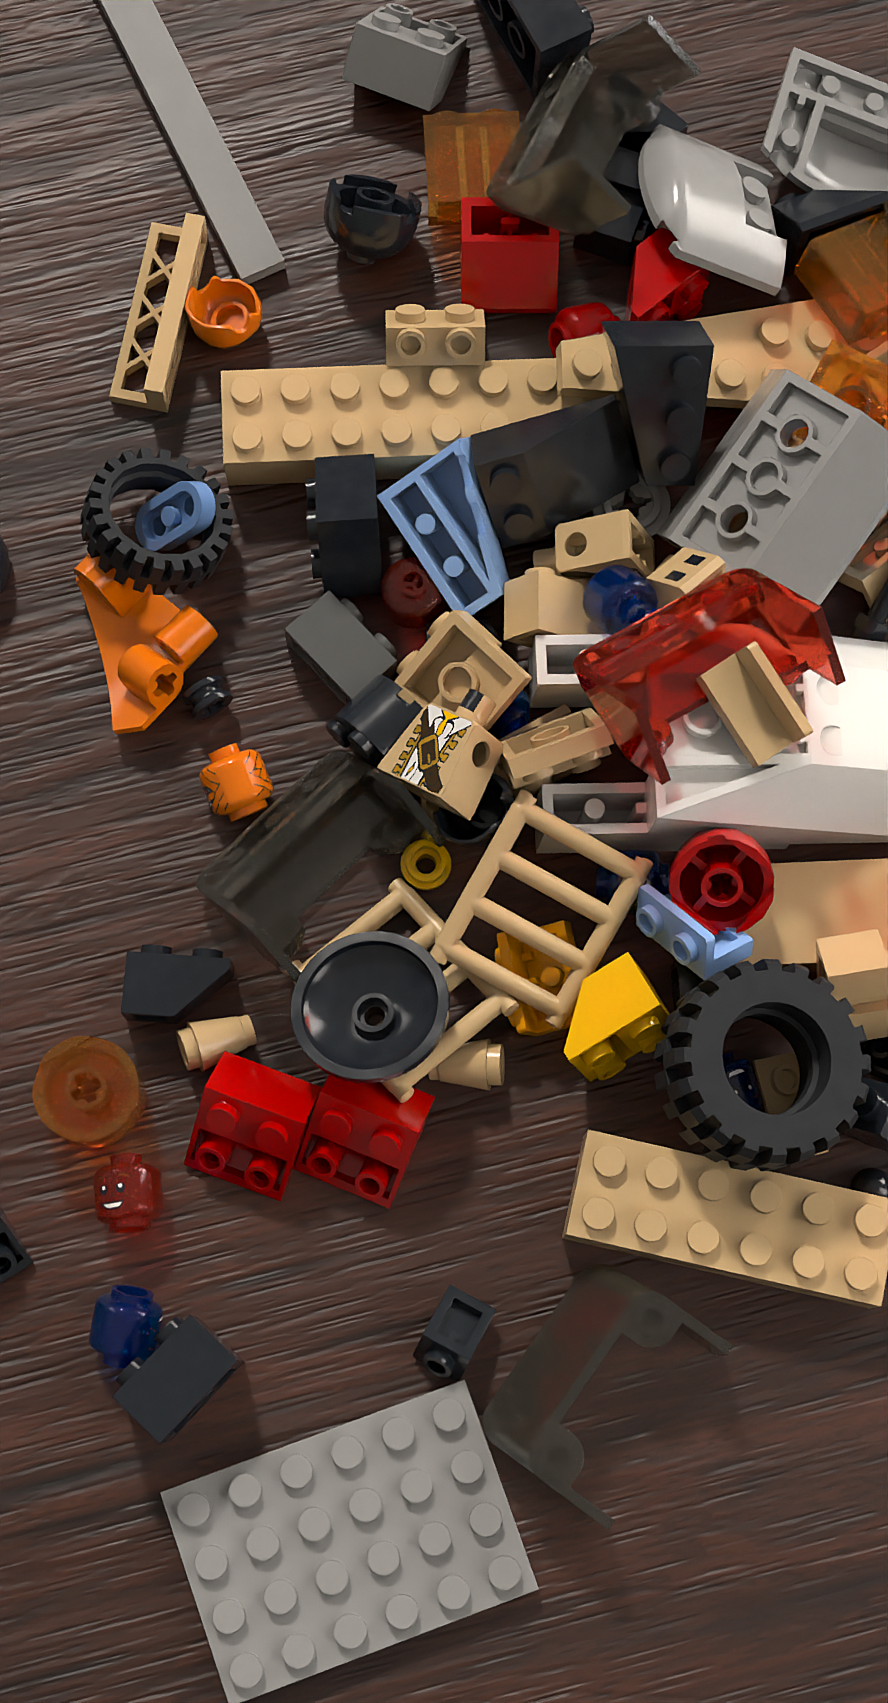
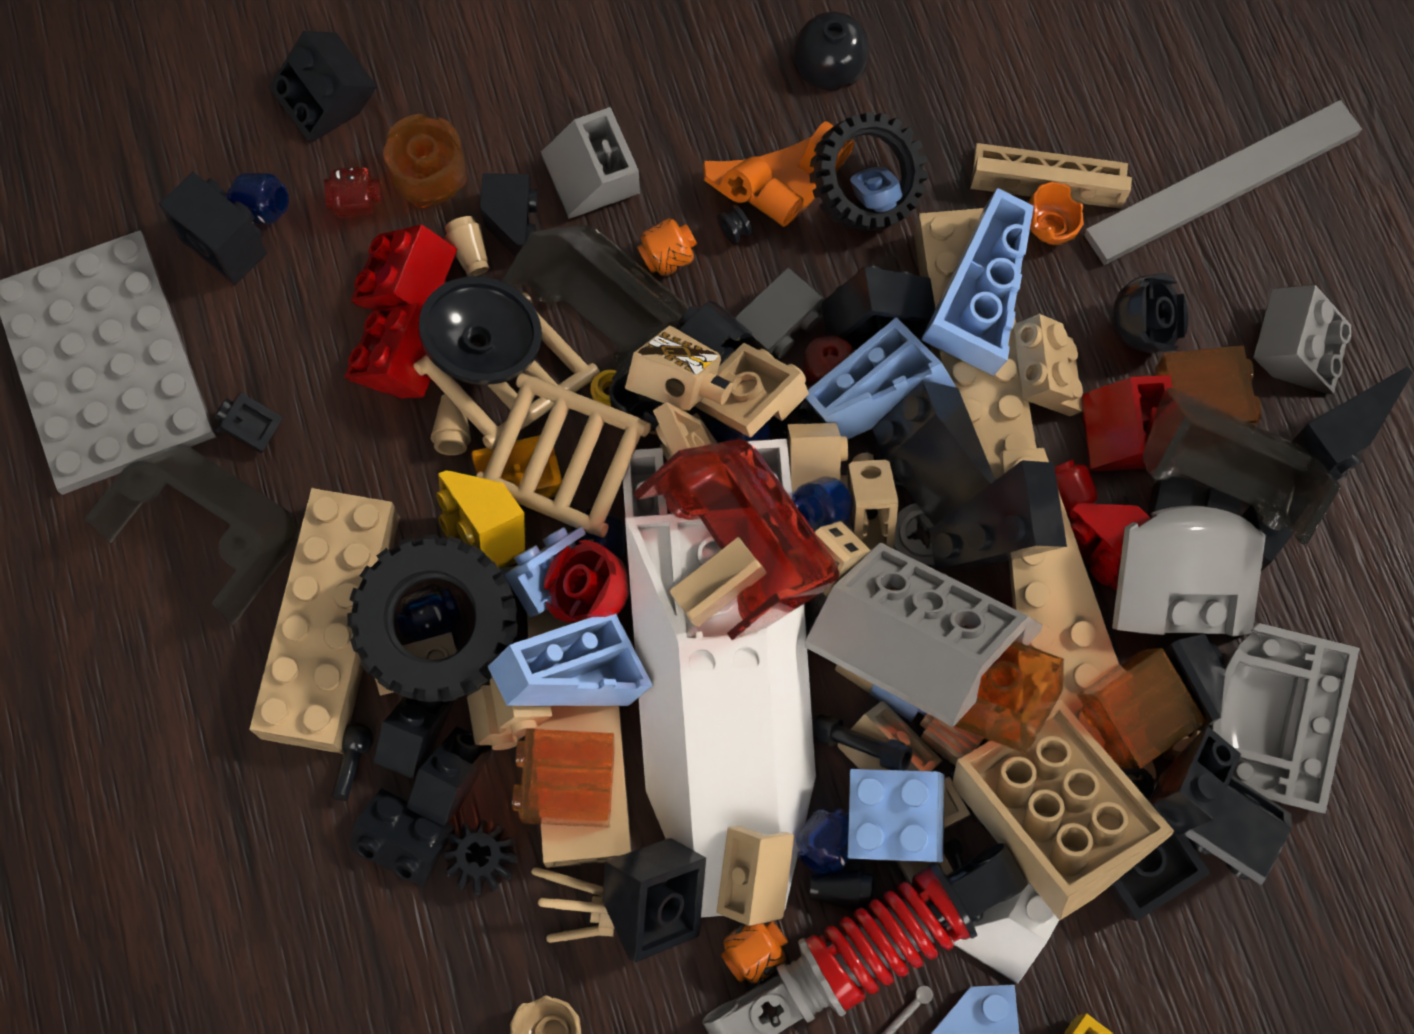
camera: 90 degrees right, 5 degrees down
(111, 873) = (591, 164): none -> light grey slope
(345, 386) = (981, 295): none -> light blue wedge
(828, 898) = (572, 667): none -> light blue wedge

